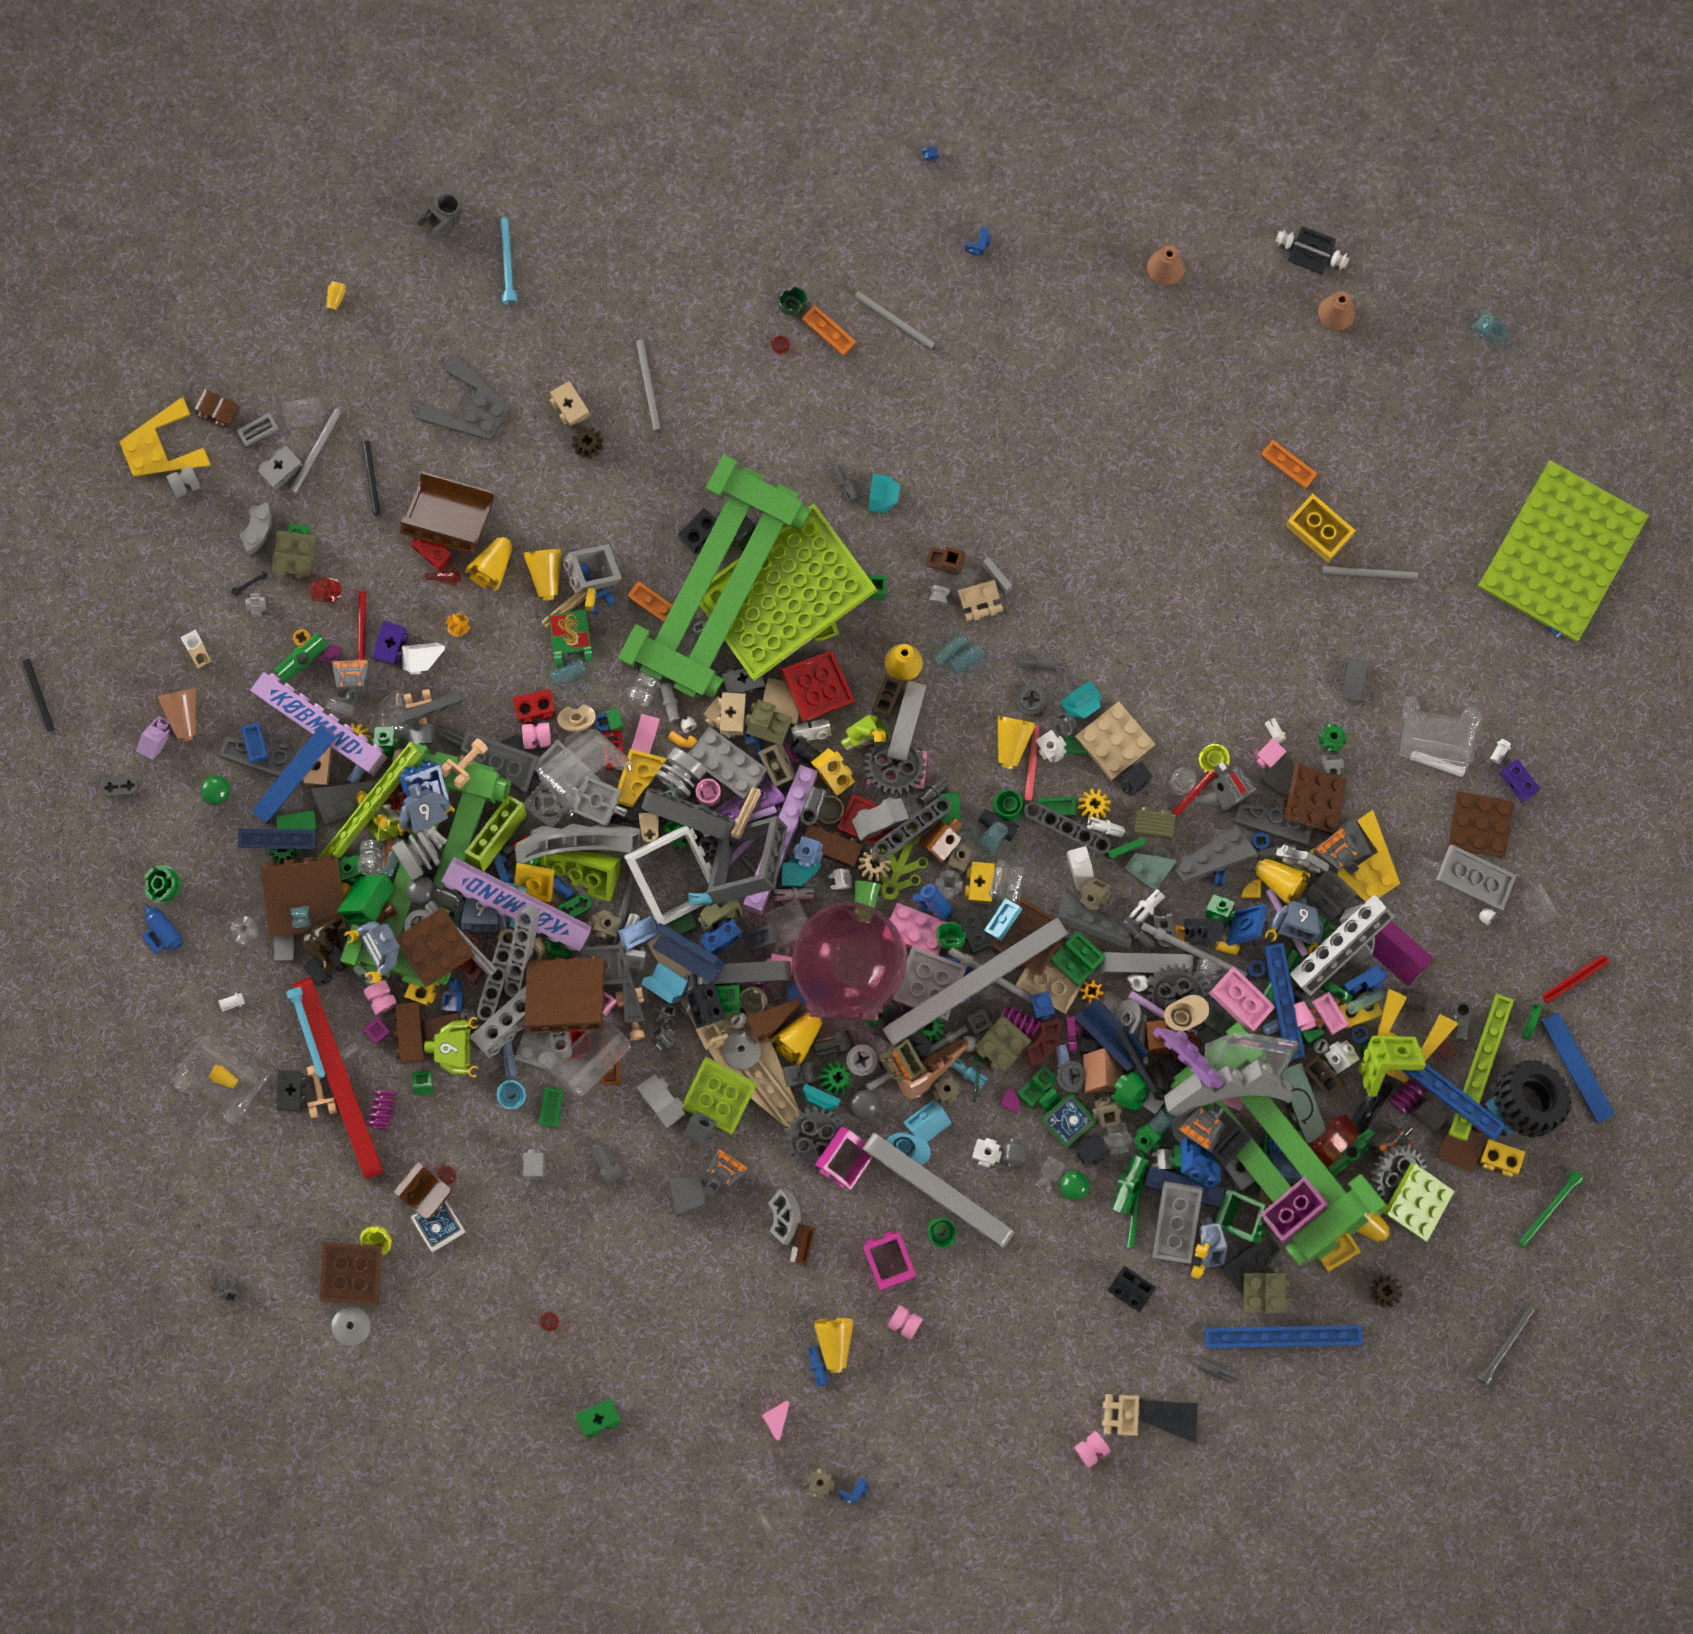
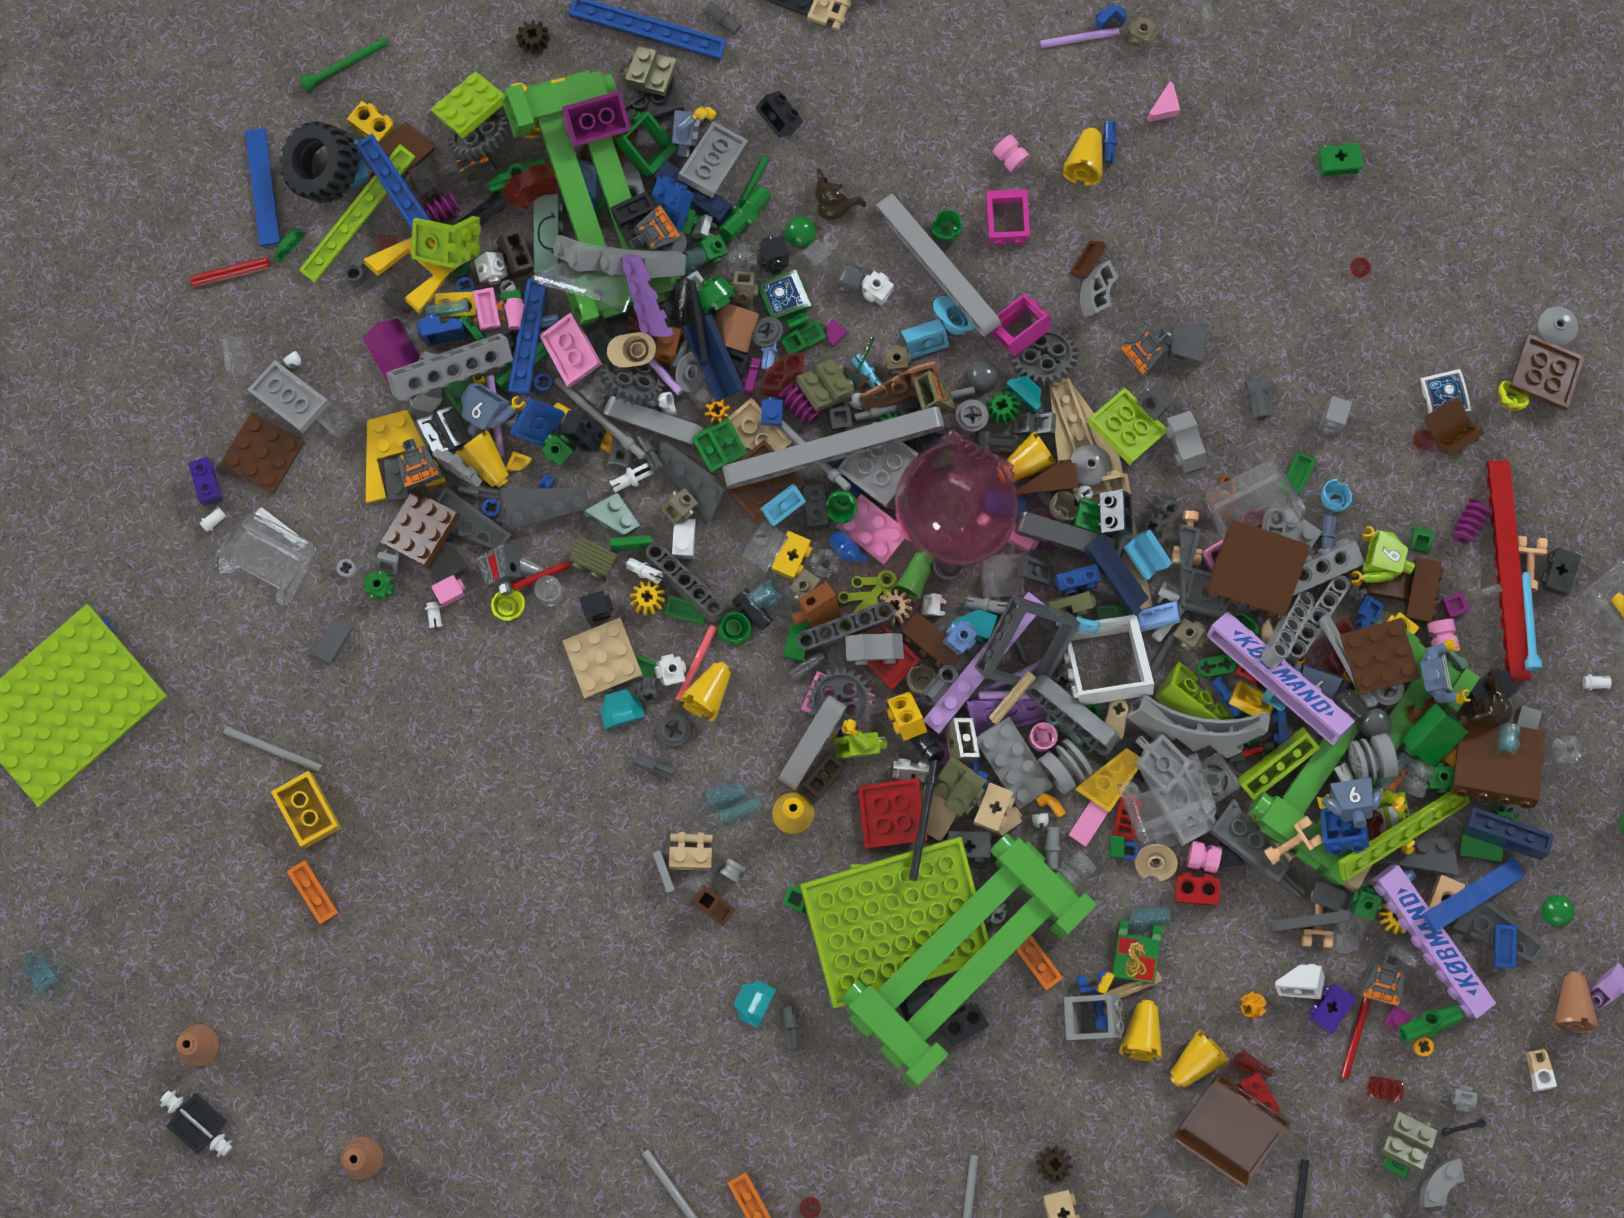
camera: 160 degrees left, 0 degrees up
(793, 718) = (930, 782): none -> black bar
(877, 1463) = (1079, 37): none -> lavender bar
(1056, 1224) = (831, 202): none -> dark brown piece
(1361, 745) = (340, 565): none -> light grey bush

